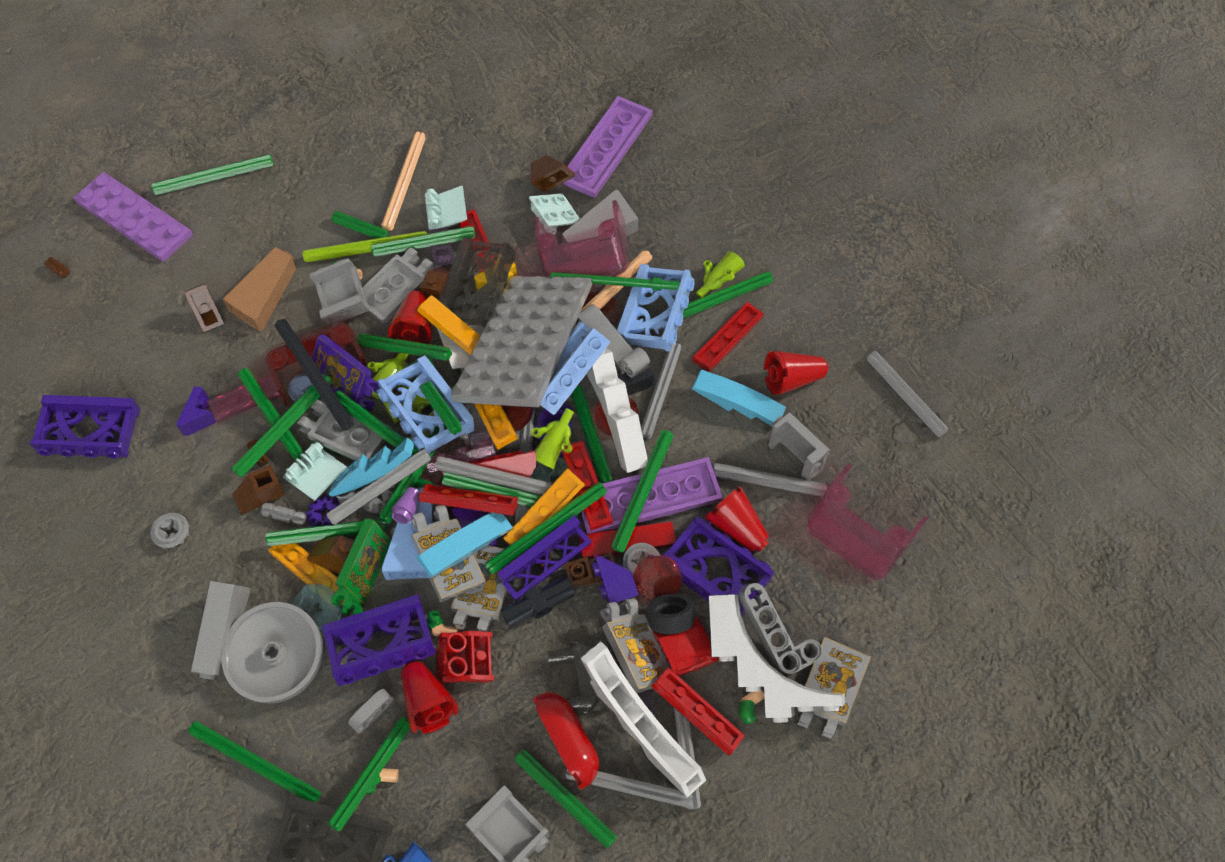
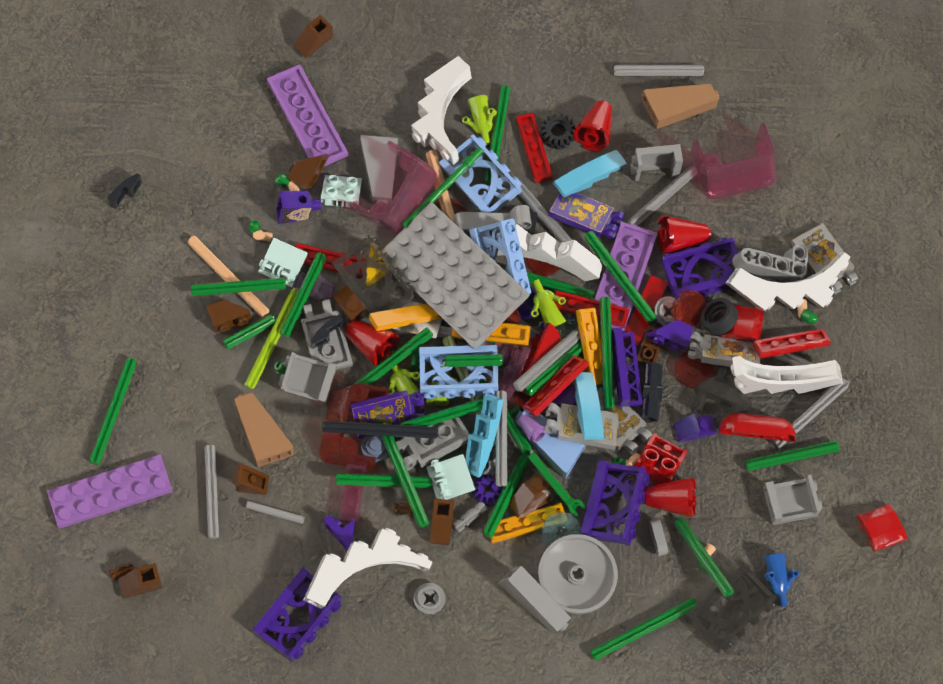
camera: 60 degrees left, 5 degrees up
(52, 286) = (140, 581): none -> reddish brown slope
(177, 288) = (211, 492): none -> light grey axle
(188, 349) = (275, 512): none -> light grey bar
(189, 455) = (383, 551): none -> white arch
(359, 197) = (227, 315): none -> reddish brown slope
(390, 275) = (322, 335): none -> black slope
(394, 189) = (238, 286): none -> green axle
(429, 62) = (127, 187): none -> black slope
(464, 176) = (257, 232): none -> arm
(506, 183) = (295, 206): none -> dark purple torso
(526, 178) = (283, 179): none -> green arm
(528, 672) = (694, 428): none -> dark purple slope
(589, 629) = (692, 371): none -> clear red tile
(688, 104) = (314, 36): none -> reddish brown slope
(691, 421) = (586, 214): none -> tile
(694, 229) = (440, 90): none -> white arch
(760, 333) = (554, 140): none -> black tyre
(886, 431) = (678, 103): none -> medium nougat slope

